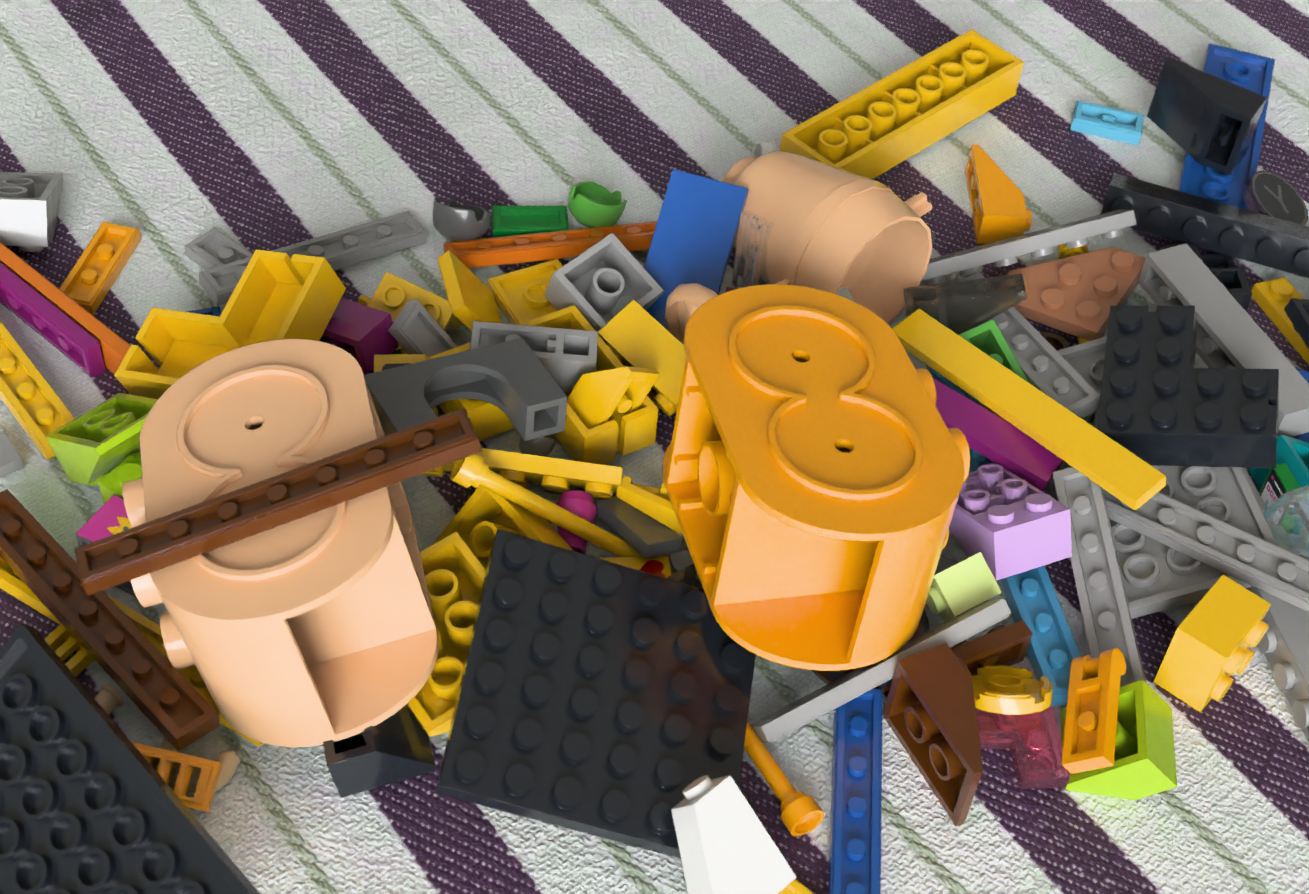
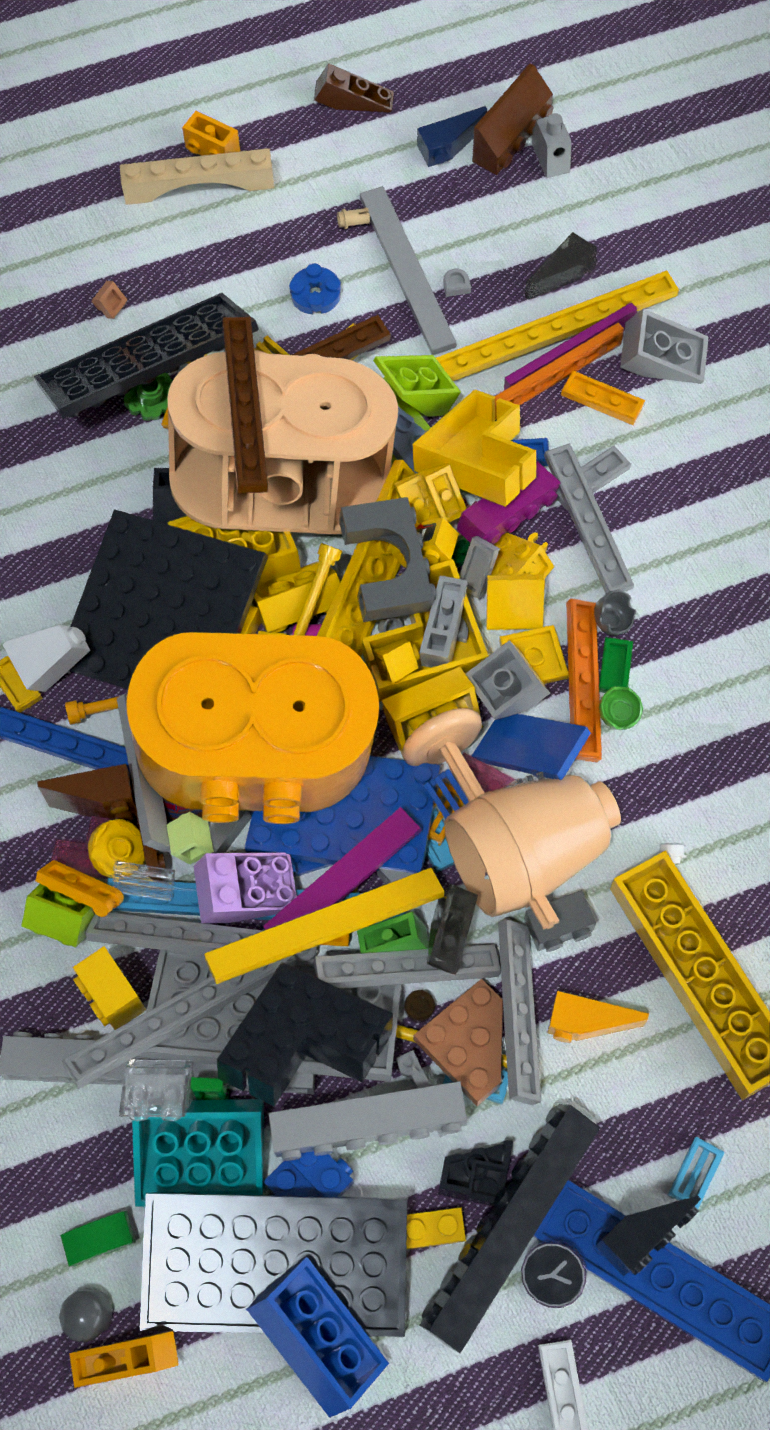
camera: 110 degrees right, 20 degrees up
(1044, 634) = (141, 885): none -> clear tile

